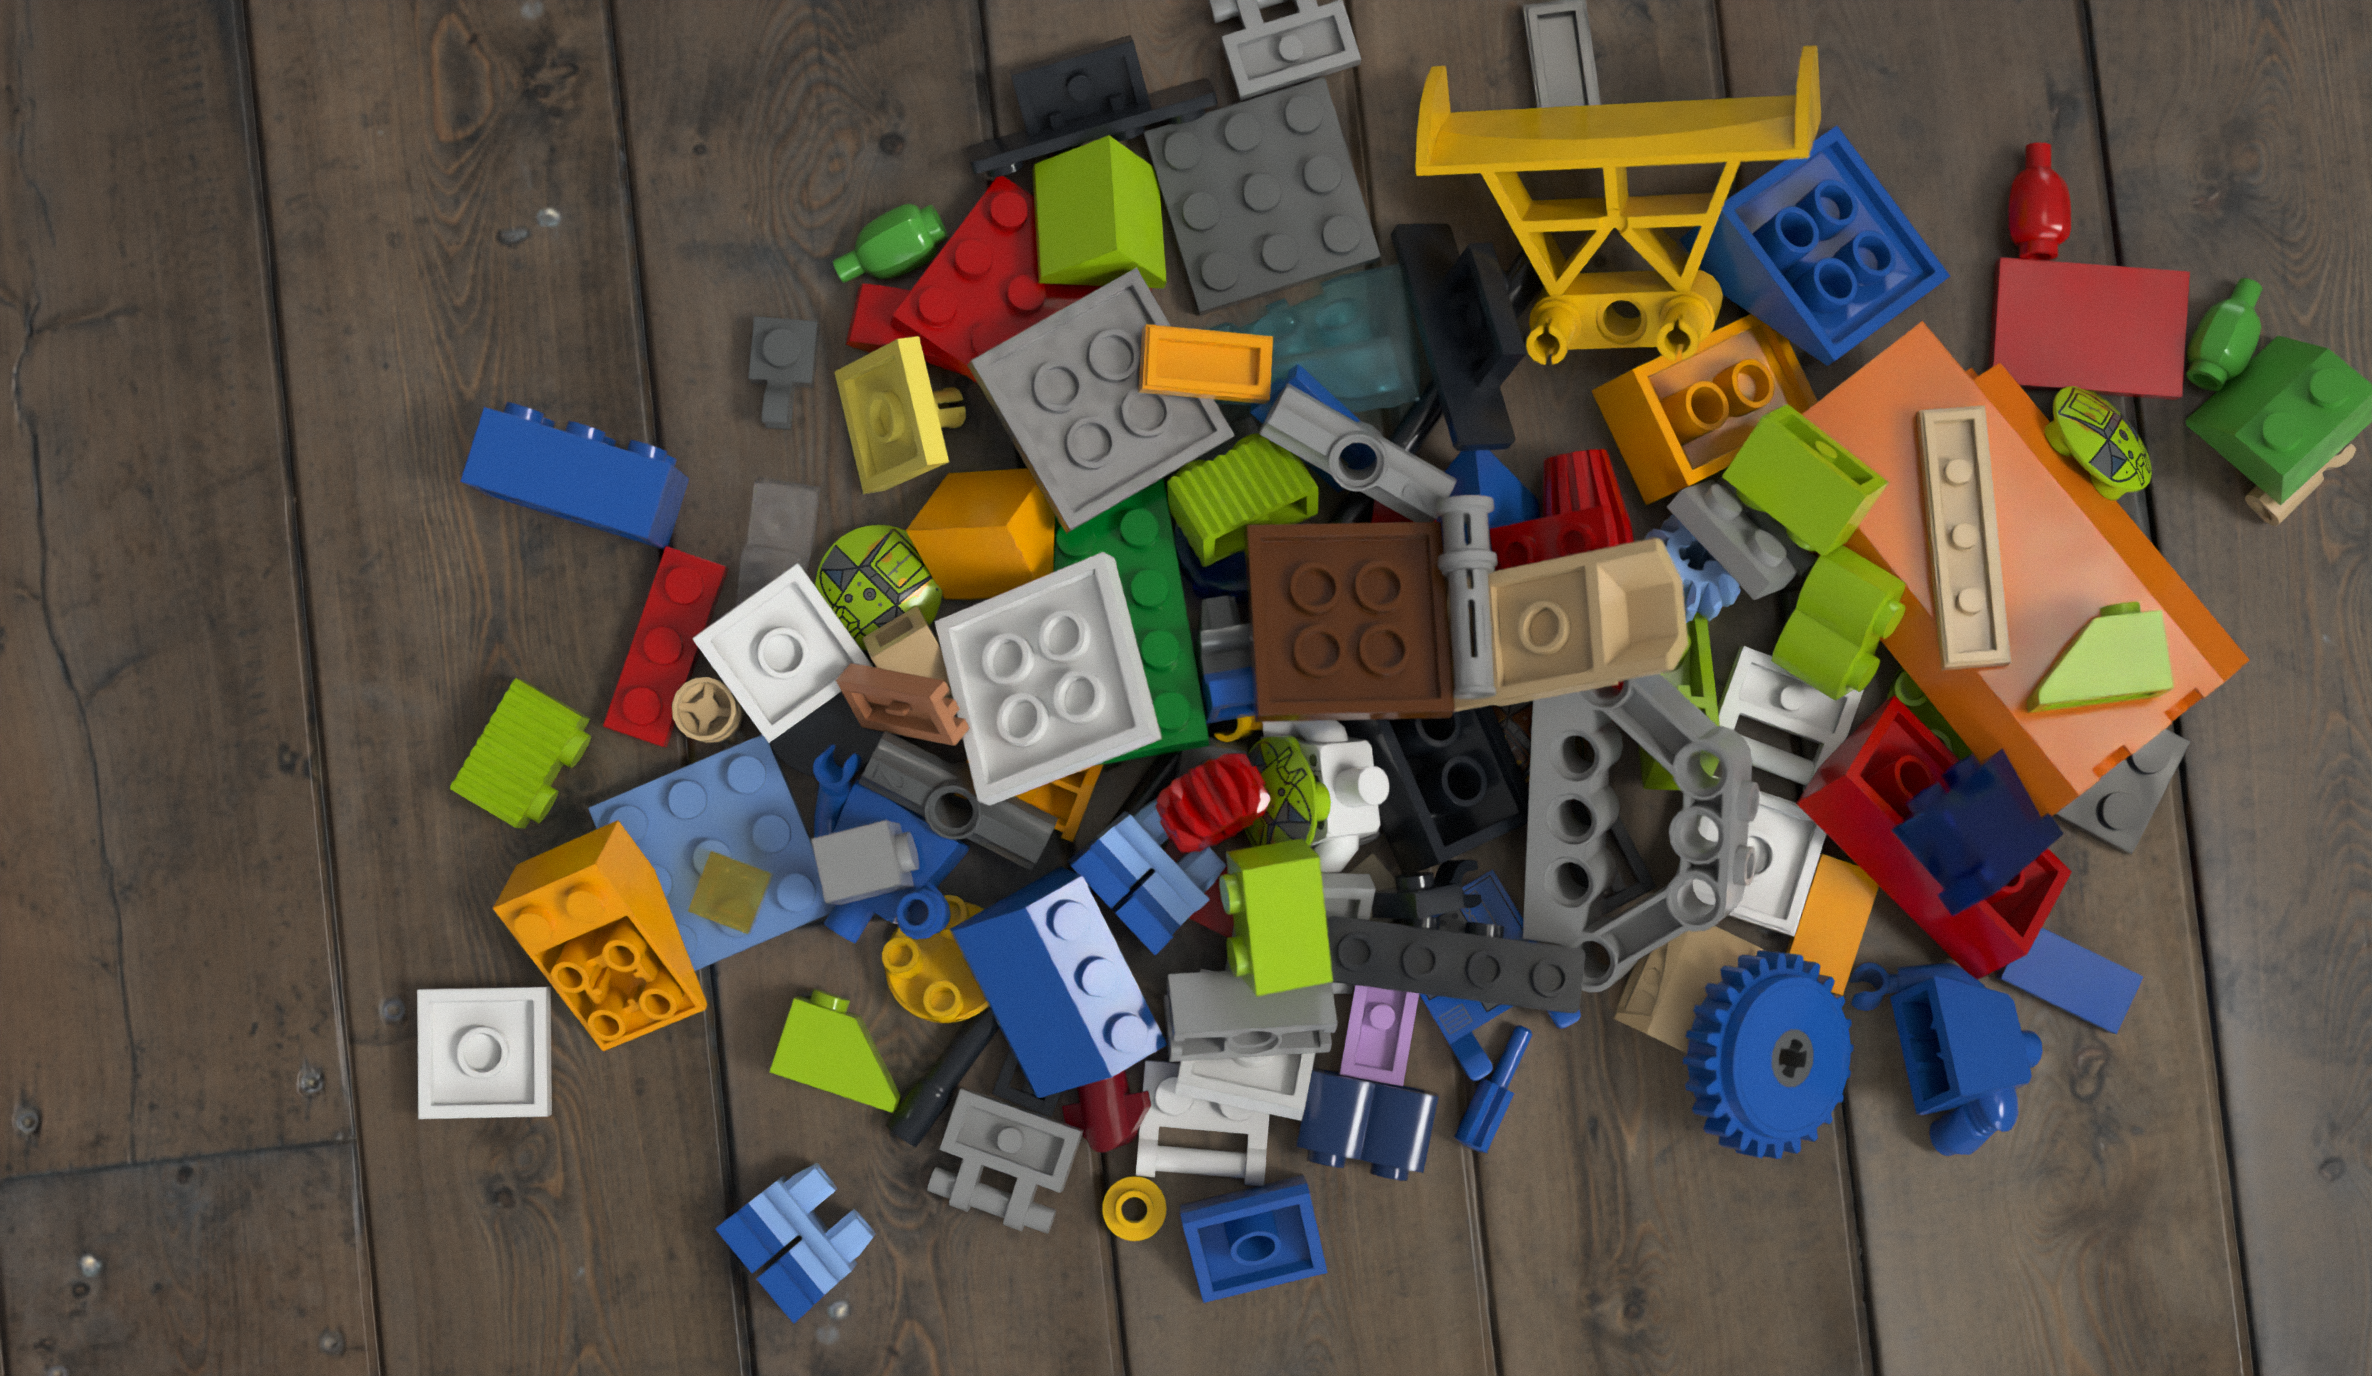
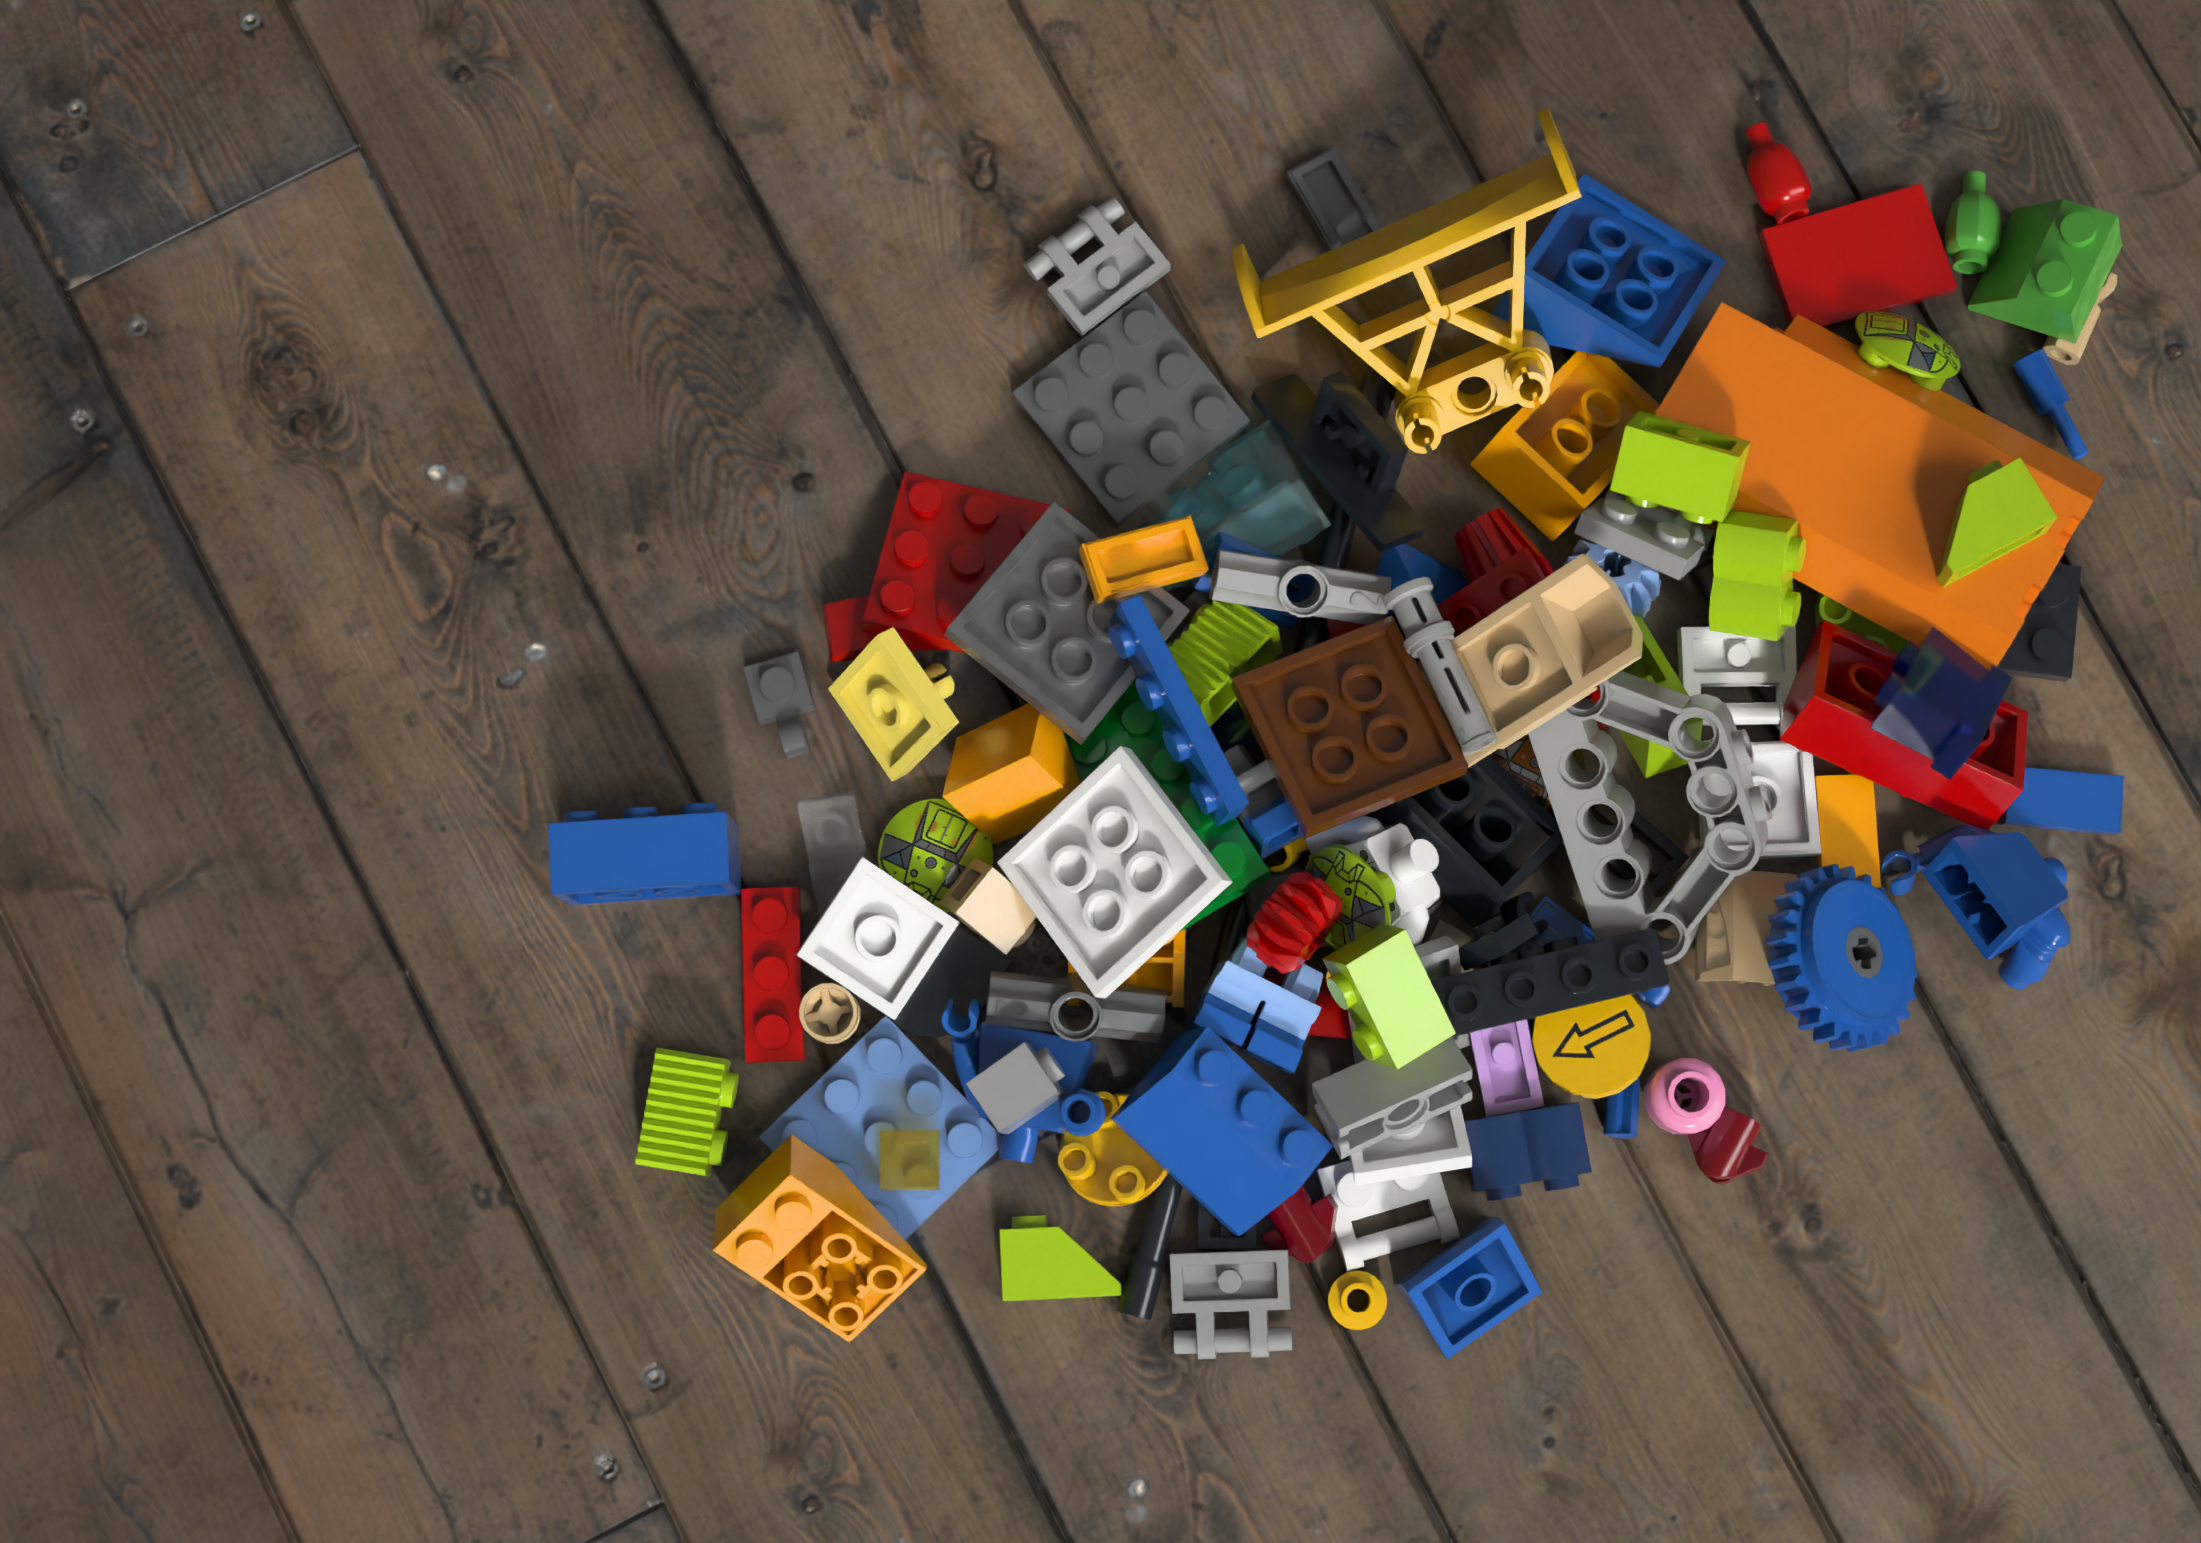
camera: 20 degrees left, 5 degrees down
(484, 1052) = (748, 1382): white plate -> none
(814, 1262) = (1101, 1454): light blue hips -> none
(894, 244) = (838, 563): bright green plant -> none
(902, 704) = (997, 941): nougat tile -> none
(1085, 99) = (951, 384): black bracket -> none
(1098, 216) = (1001, 474): lime slope -> none
(1172, 512) = (1186, 729): none -> blue plate
(1476, 1046) = (1593, 1047): none -> yellow tile
(1572, 1139) = (1703, 1090): none -> bright pink head
(1573, 1198) = (1727, 1148): none -> dark red piece
(1963, 538) = (1830, 465): tan tile -> none
(2232, 548) = (2049, 396): none -> blue axle

